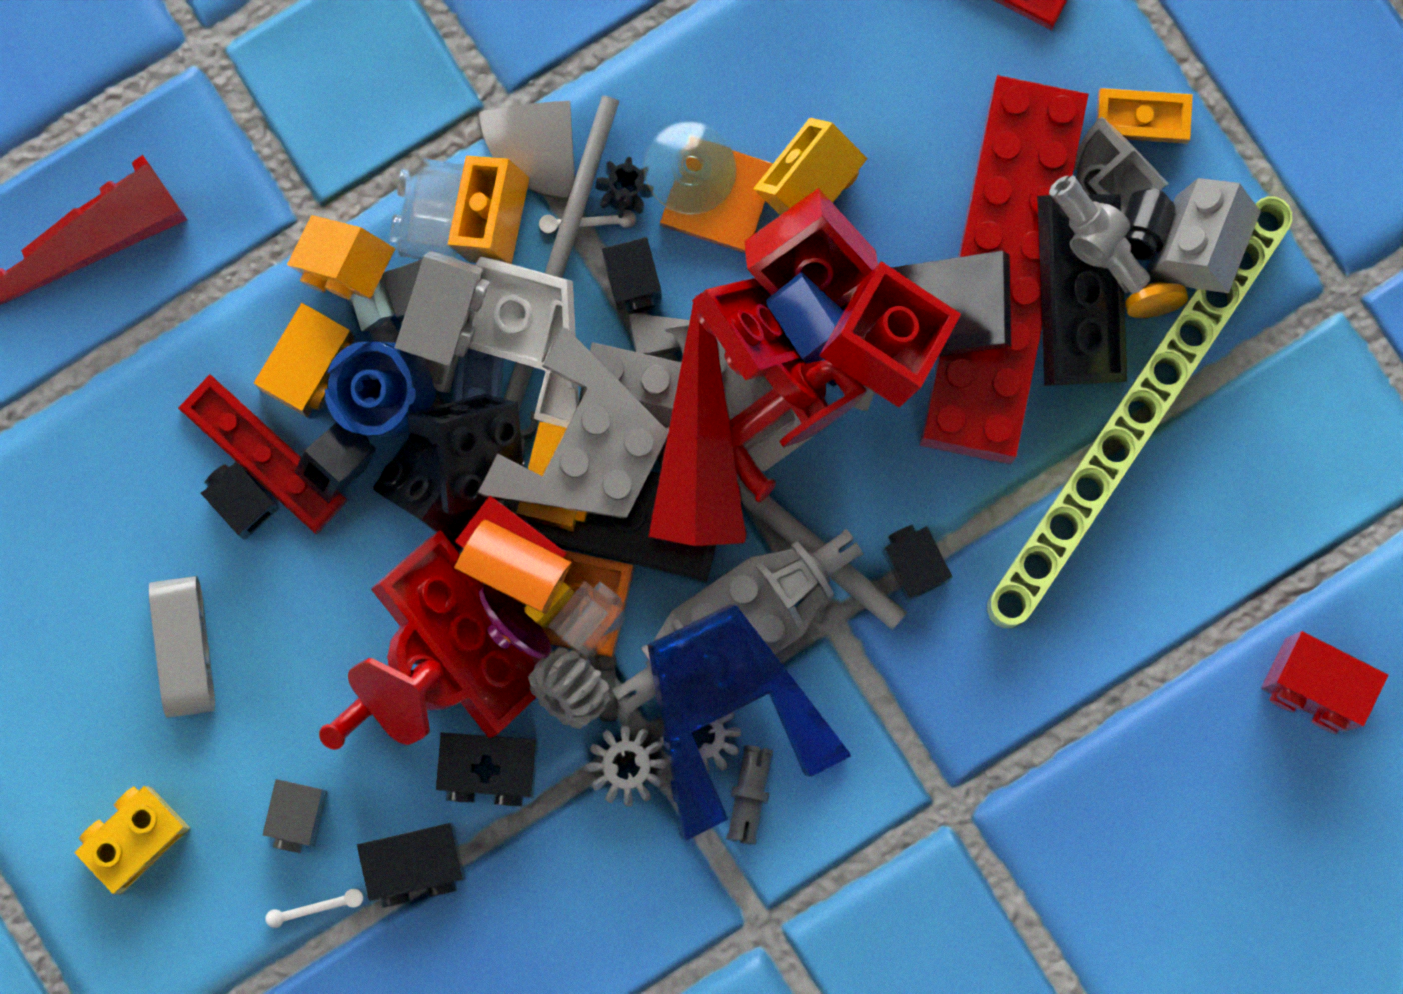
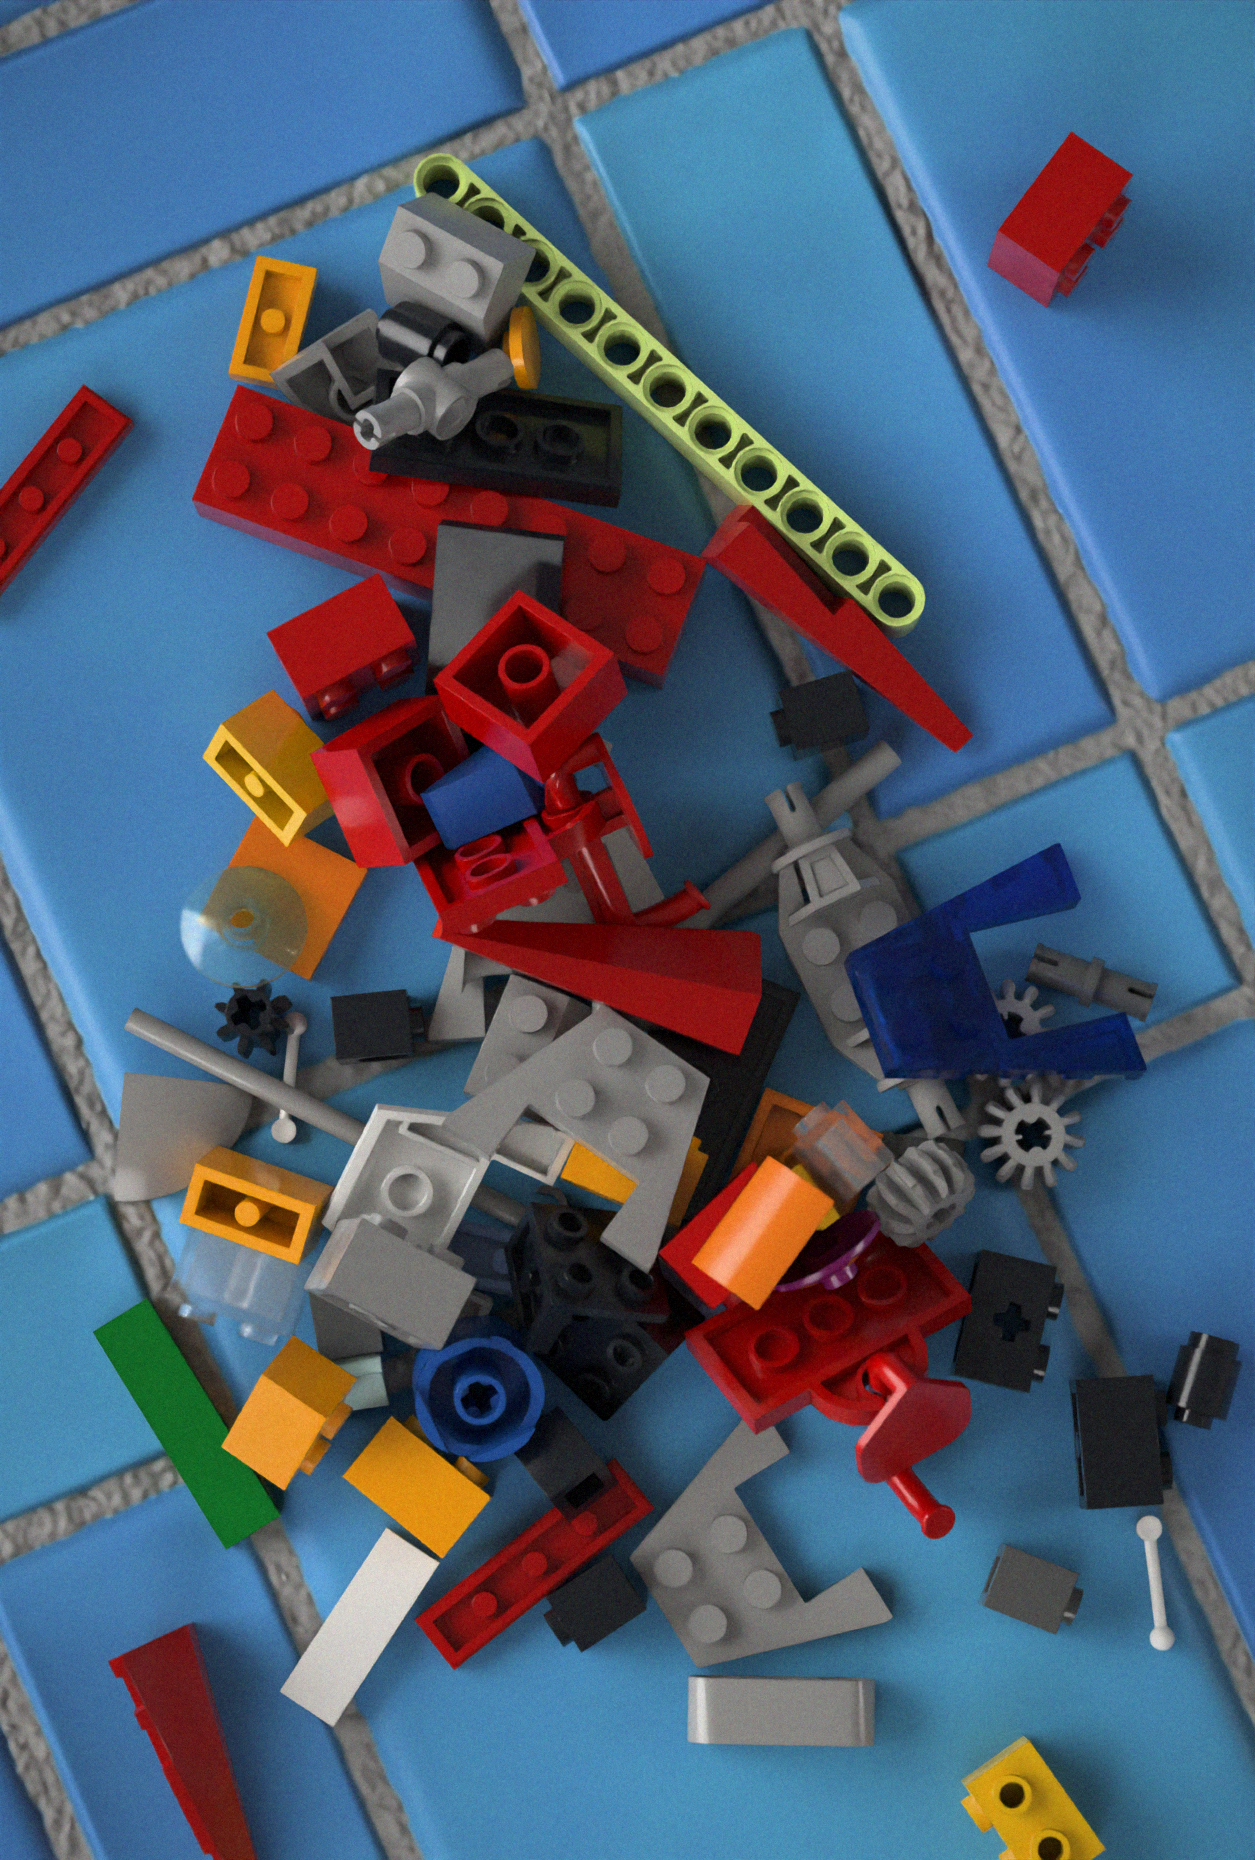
camera: 80 degrees left, 0 degrees up
(199, 336) = (360, 1627): none -> white tile
(271, 591) = (722, 1577): none -> light grey wing
(327, 188) = (186, 1423): none -> green tile
(466, 920) = (1203, 1380): none -> black brick
(904, 205) = (346, 649): none -> red brick
(1010, 519) = (770, 571): none -> red wedge

